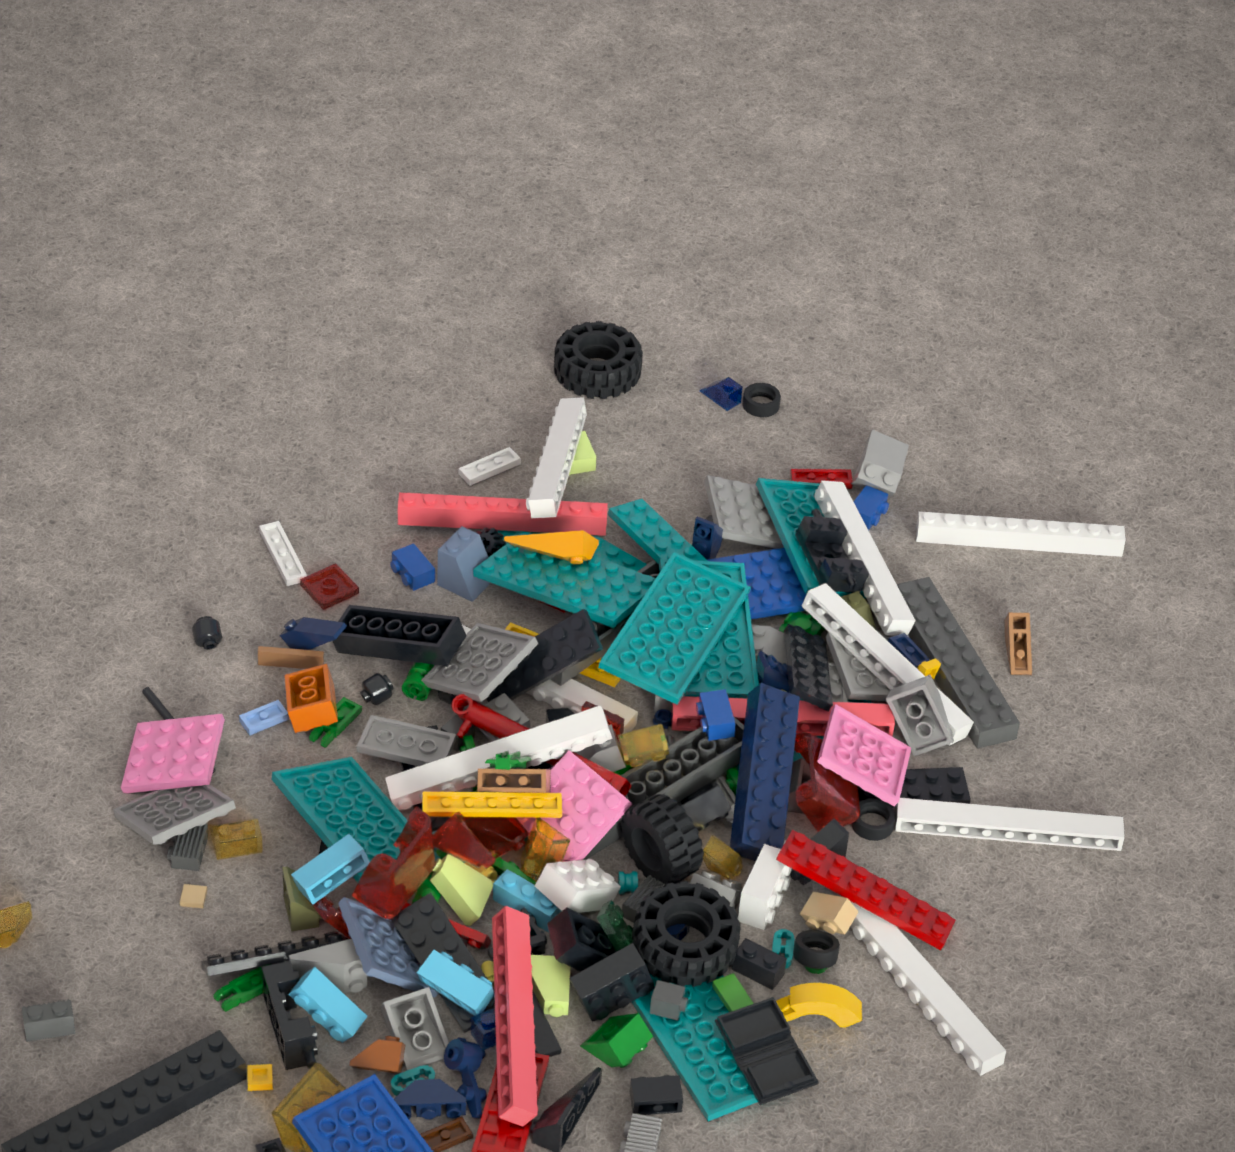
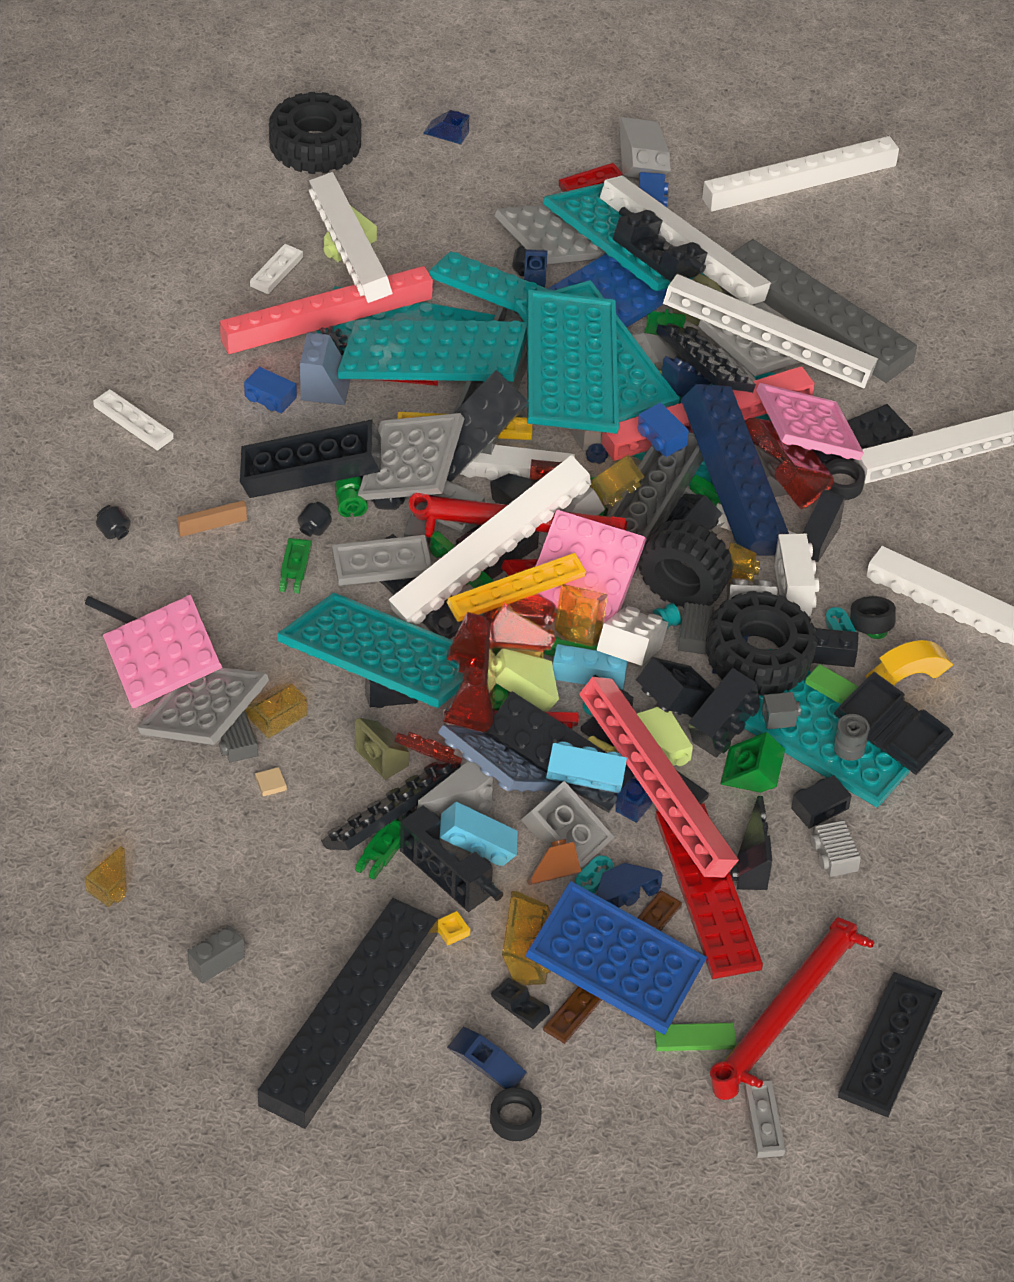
camera: 25 degrees left, 5 degrees up
(263, 717) = (223, 585): light blue plate -> none
(310, 632) = (222, 486): dark blue slope -> none
(311, 698) = (264, 549): orange brick -> none
(329, 586) = (200, 436): clear red plate -> none
(330, 869) = (408, 703): medium azure brick -> none
(466, 1059) = (633, 835): dark blue piece -> none
(506, 761) = (513, 539): green piece -> none
(514, 780) = (524, 556): medium nougat brick -> none
(569, 546) = (420, 318): light orange wedge -> none
(615, 927) = (694, 661): clear green plate -> none
(715, 1047) = (851, 737): none -> dark grey wheel
(761, 409) = (488, 133): black tyre -> none
(828, 913) = (866, 577): tan brick -> none
(866, 889) = (886, 543): red plate -> none
(908, 649) = (780, 311): dark blue plate -> none
(920, 715) = (832, 367): light grey slope -> none
(929, 667) = (808, 321): yellow plate -> none
(1018, 643) = (862, 273): medium nougat slope -> none

